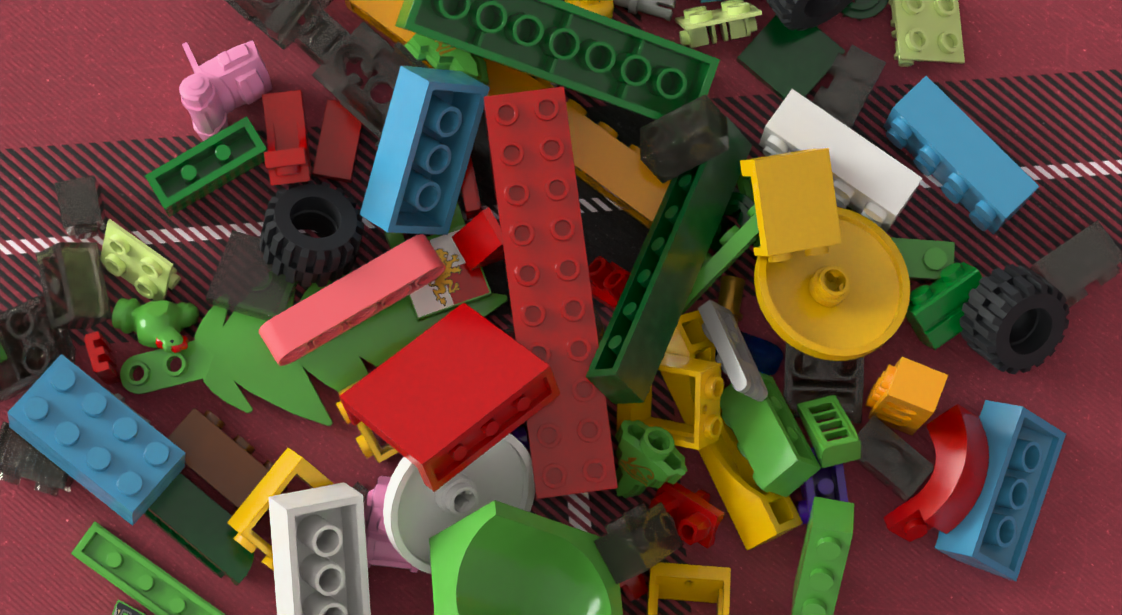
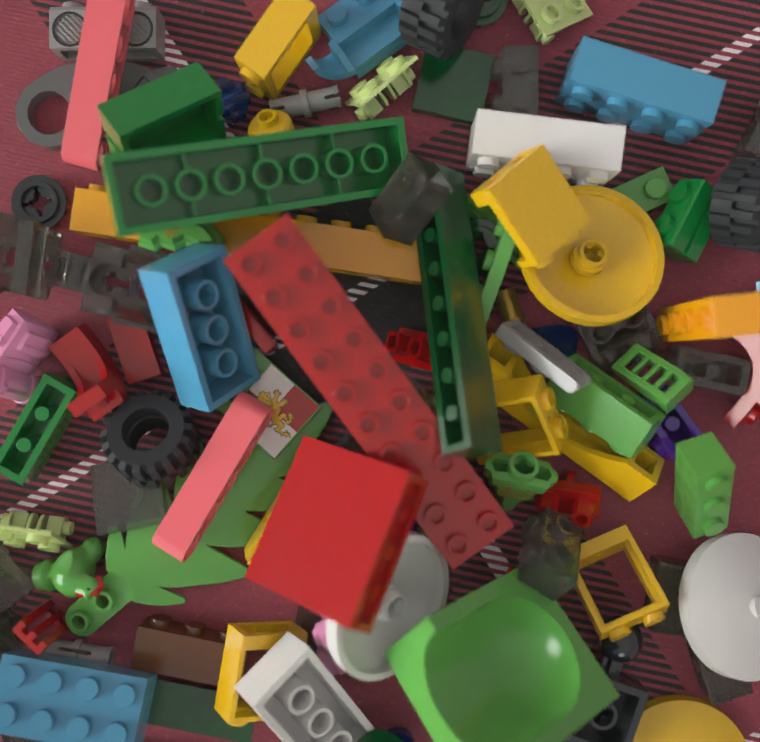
camera: 30 degrees left, 10 degrees up
(480, 240) = (287, 373): red slope -> none

